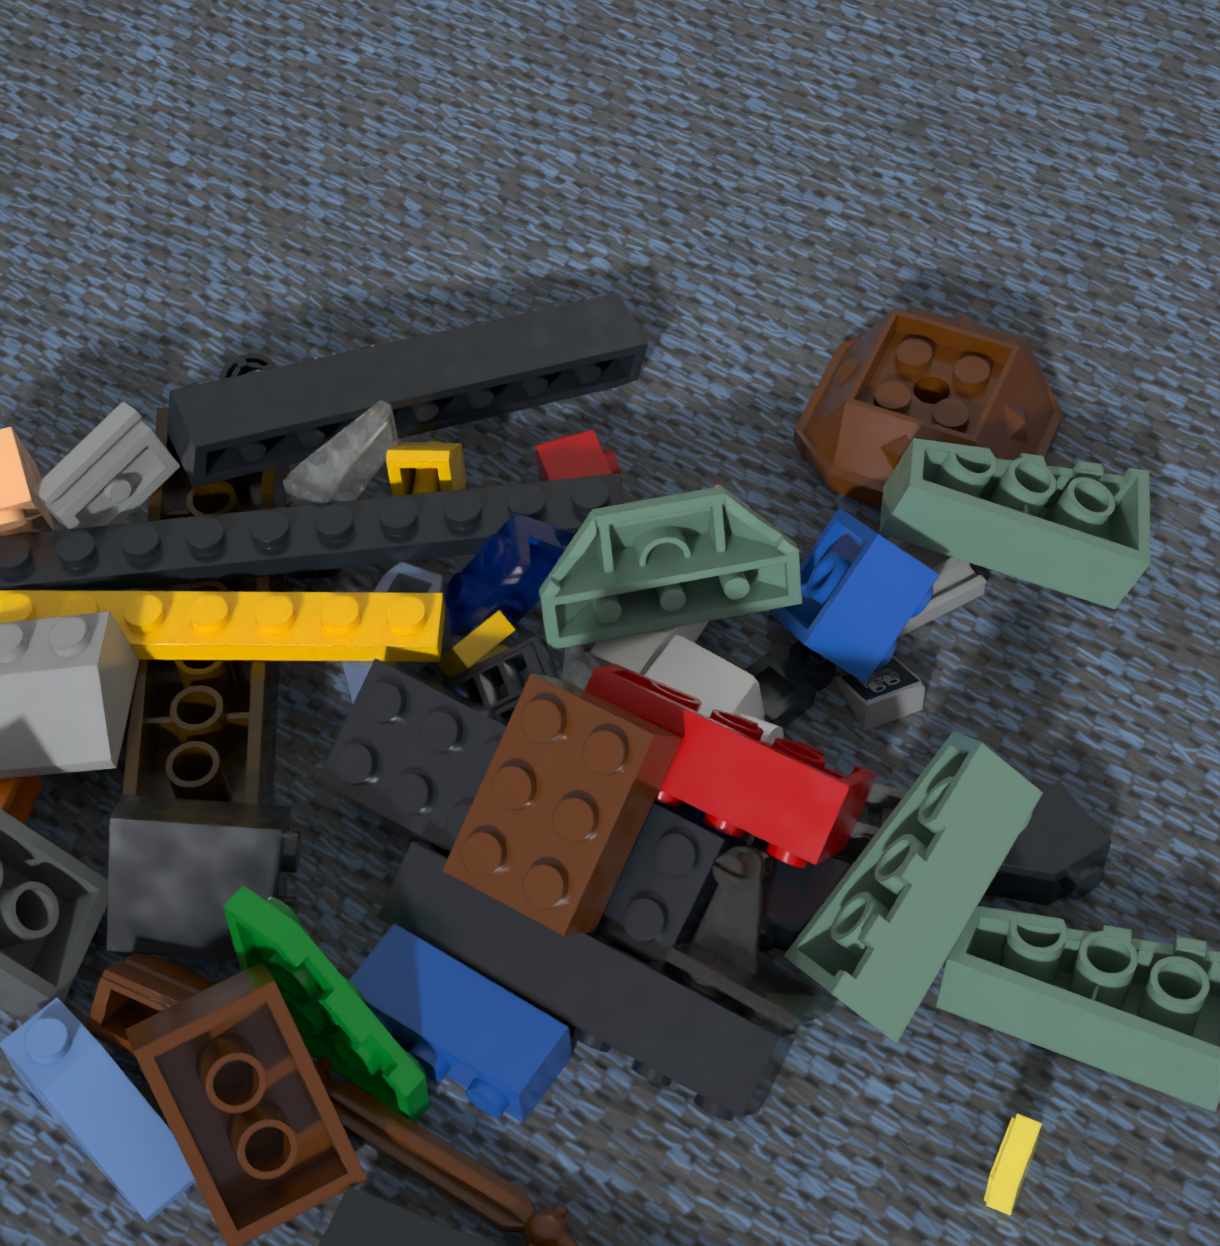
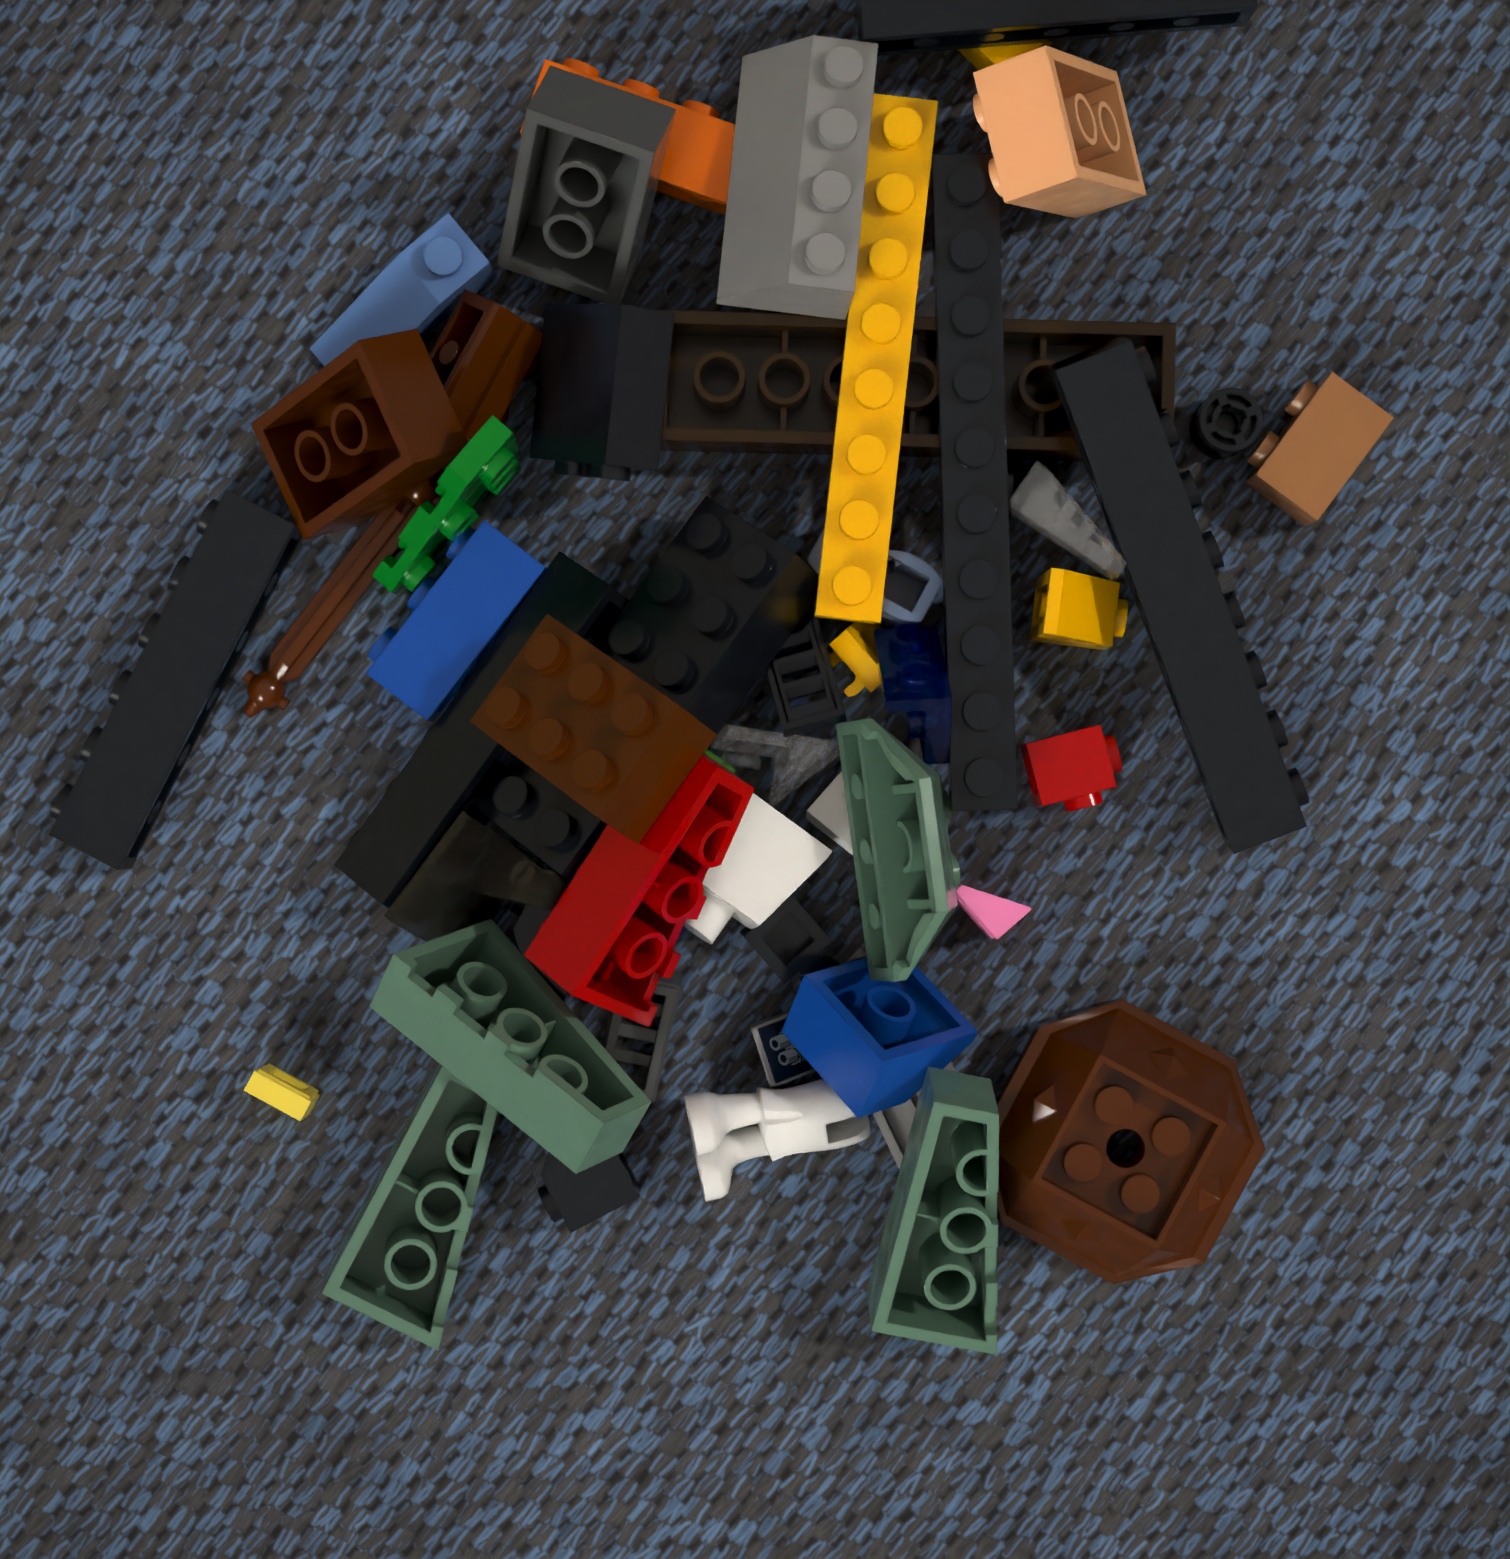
camera: 90 degrees right, 35 degrees up
(107, 473) = (1056, 276): light grey plate -> none
(275, 321) = (1317, 448): none -> medium nougat brick
(965, 690) = (788, 1123): none -> white piece

